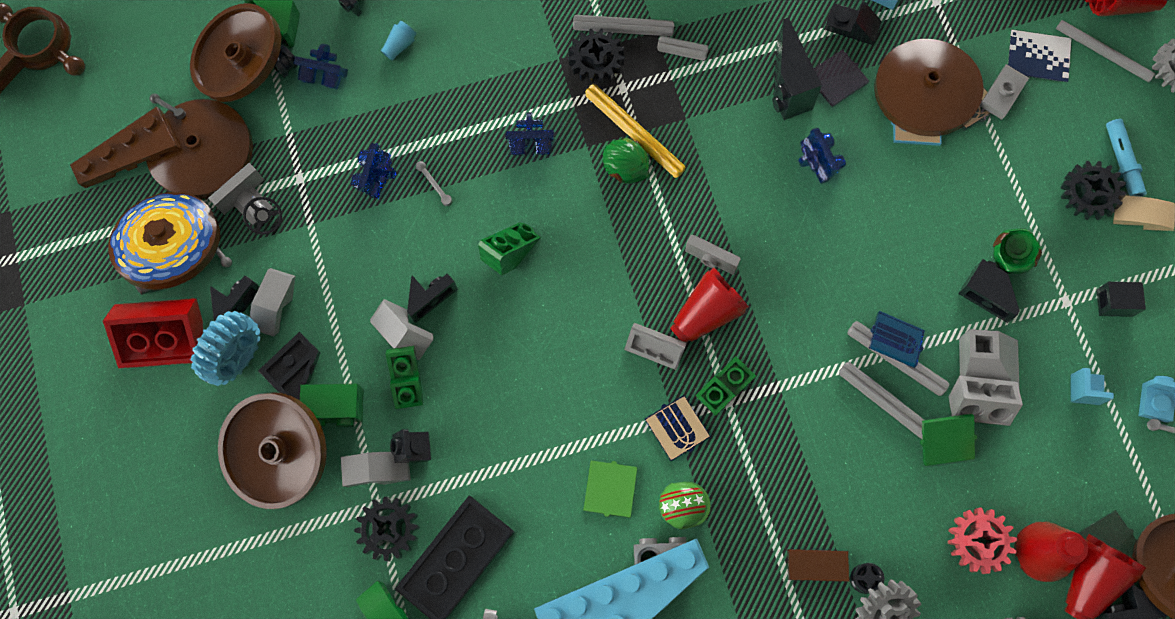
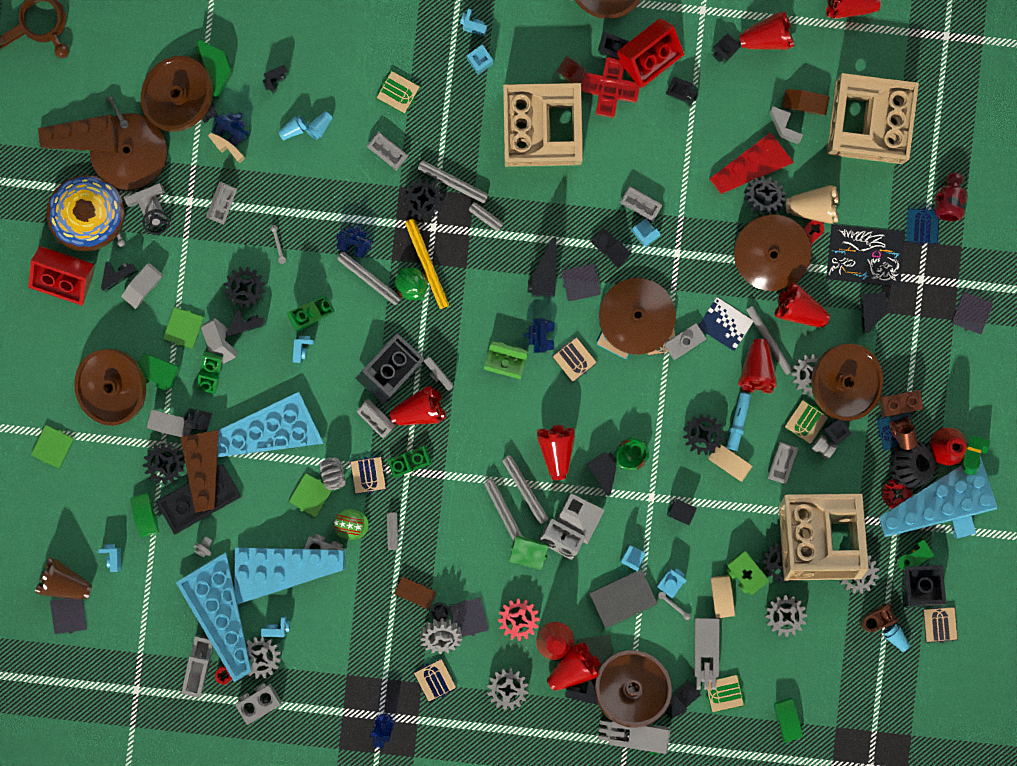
camera: 15 degrees right, 15 degrees up
(219, 572) = (52, 446): none -> bright green piece
(225, 348) = (103, 310): medium azure gear -> none
(291, 366) = (140, 336): black wing -> none
(319, 90) = (222, 145): none -> tan slope
(340, 159) = (221, 203): none -> light grey plate
(348, 336) = (183, 328): none -> bright green piece
(375, 171) = (242, 221): clear blue hips -> none
(411, 238) = (234, 294): none -> black gear
(429, 26) = (319, 125): none -> medium azure cone
(439, 504) = (201, 463): none -> reddish brown wing
(516, 301) = (299, 352): none -> medium azure bracket
(521, 416) = (272, 428): none -> medium azure wing
(527, 21) = (387, 151): none -> light grey plate
(568, 176) = (369, 278): none -> light grey axle
(629, 442) = (332, 473): none -> light grey gear
(644, 275) = (390, 368): none -> black slope
(745, 490) = (392, 530): none -> light grey axle
(791, 201) = (506, 360): none -> bright green bracket
(876, 170) = (574, 359): none -> piece
(897, 339) = (529, 477): piece -> none
(911, 565) = (469, 616): none -> piece
(917, 286) = (556, 449): none -> red cone
(1106, 450) = (623, 598): none -> dark grey tile
(1118, 83) = (758, 369): none -> red cone

